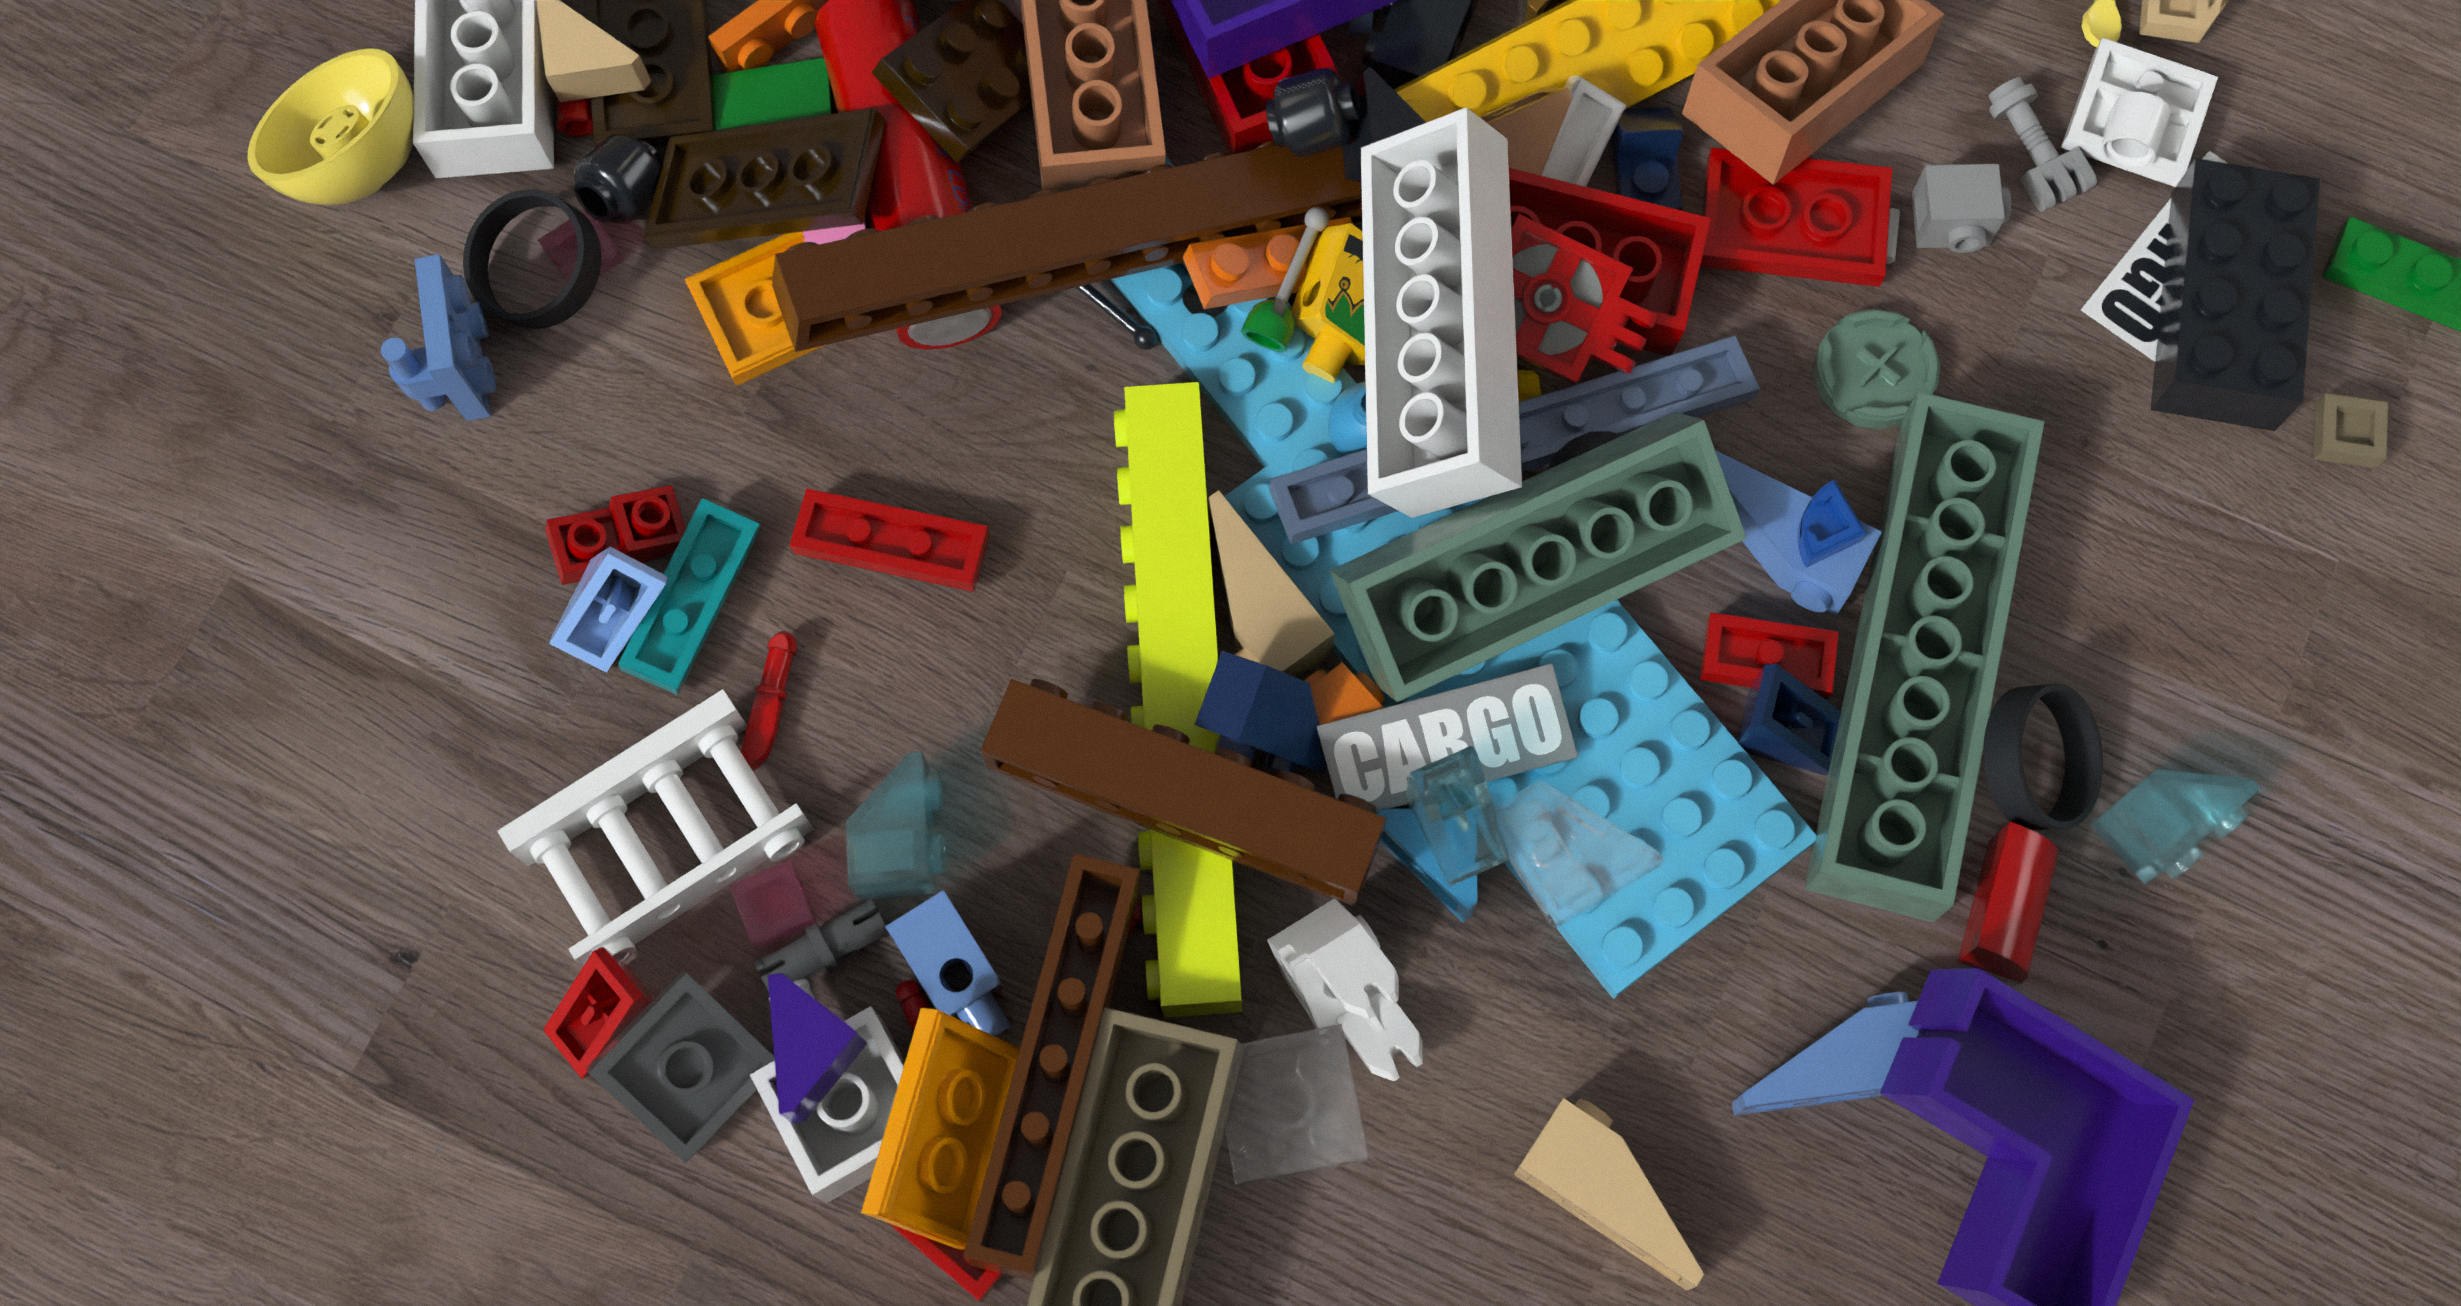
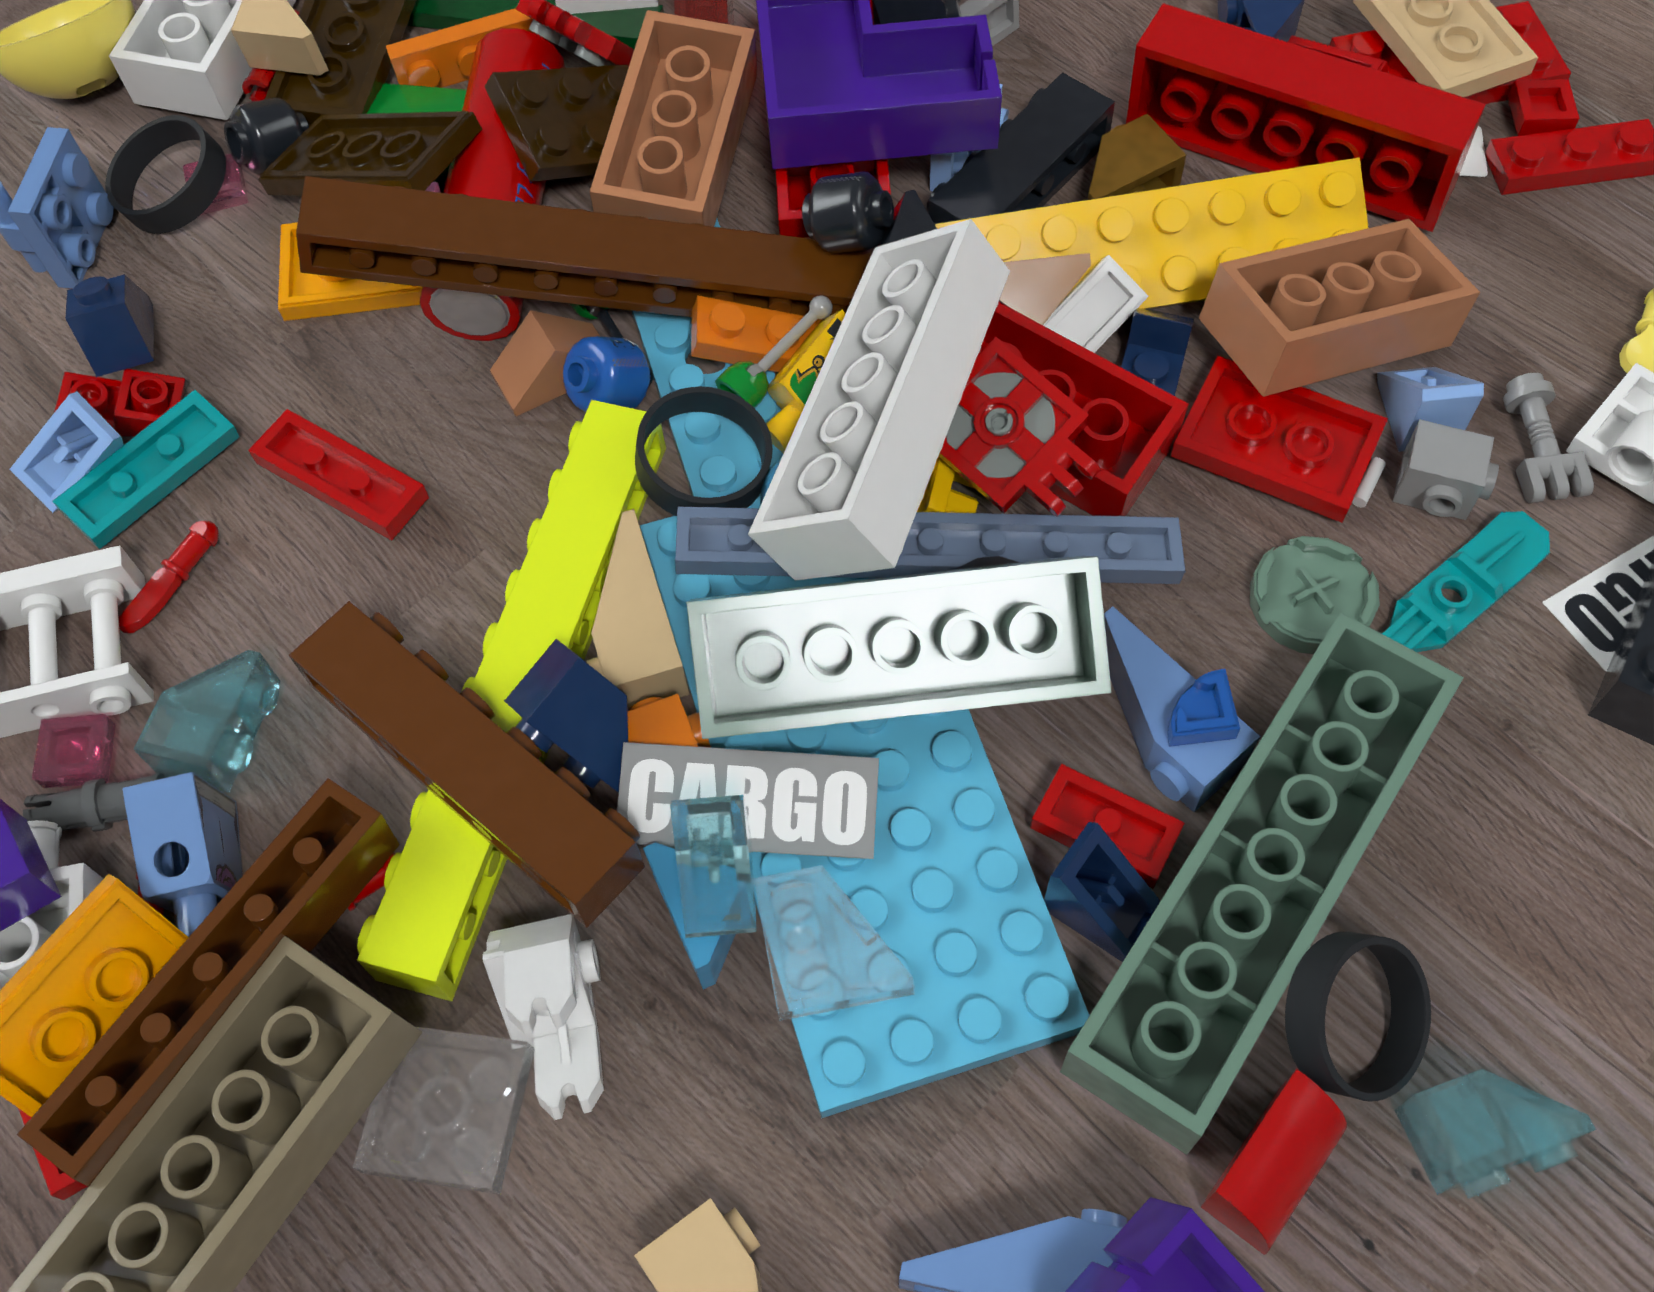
camera: 20 degrees right, 10 degrees down
(583, 457) = (111, 323): none -> dark blue slope
(1046, 351) = (534, 359): none -> nougat slope
(1121, 352) = (606, 372): none -> blue head
(1284, 358) = (710, 401): none -> black tyre
(1920, 133) = (1428, 396): none -> light blue slope
(2017, 300) = (1478, 572): none -> teal piece

